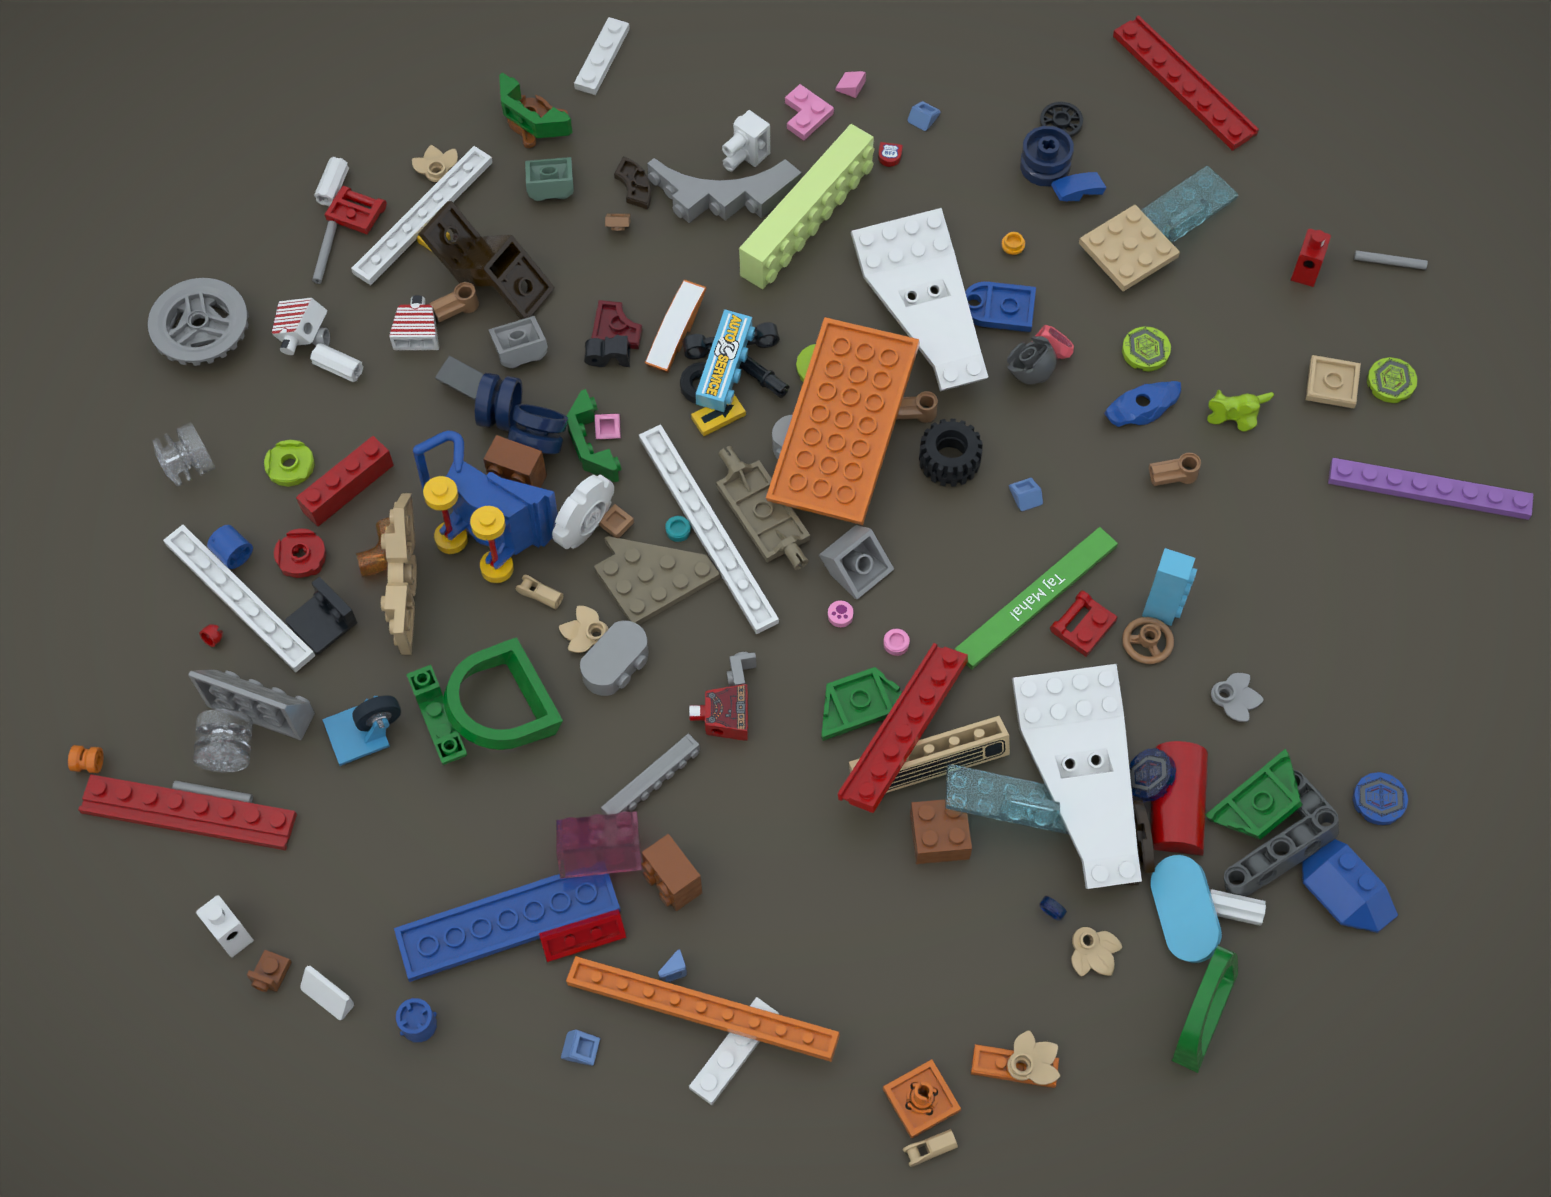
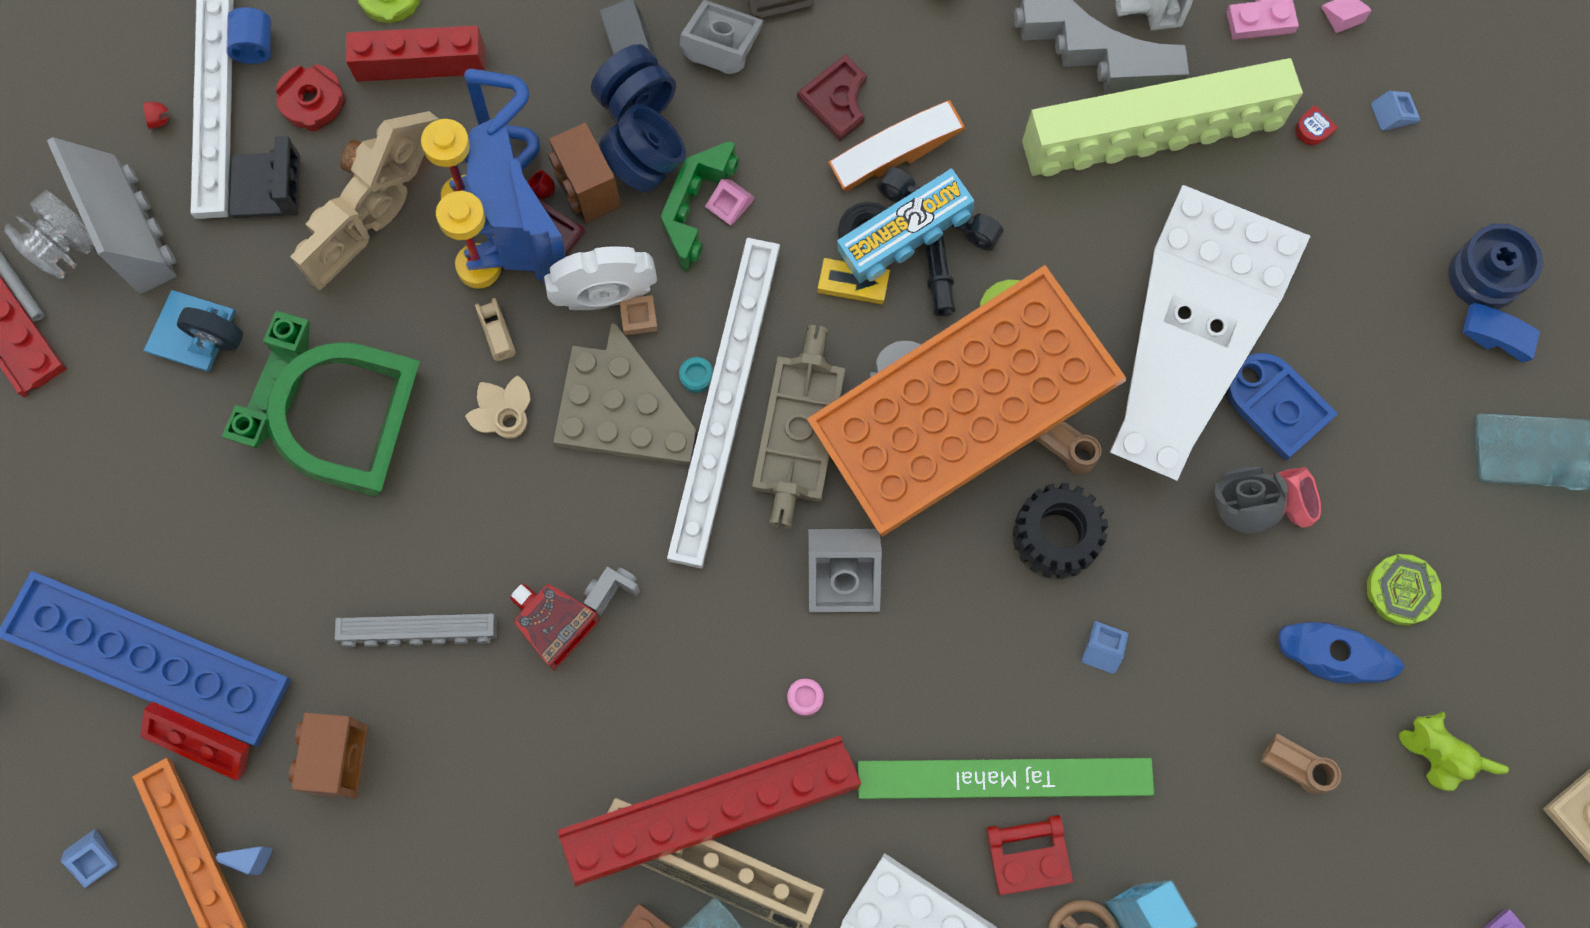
camera: 40 degrees right, 10 degrees up
(598, 844) = (288, 659): clear pink brick -> none
(600, 351) = (794, 113): black leg -> none
(614, 658) = (498, 466): light grey brick -> none
(840, 614) = (775, 614): bright pink tile -> none
(857, 702) = (700, 731): green wing -> none
(1013, 243) = (1360, 341): light orange plate -> none
(1062, 118) = (1557, 235): black wheel -> none
(1129, 247) = (1494, 453): tan plate -> none

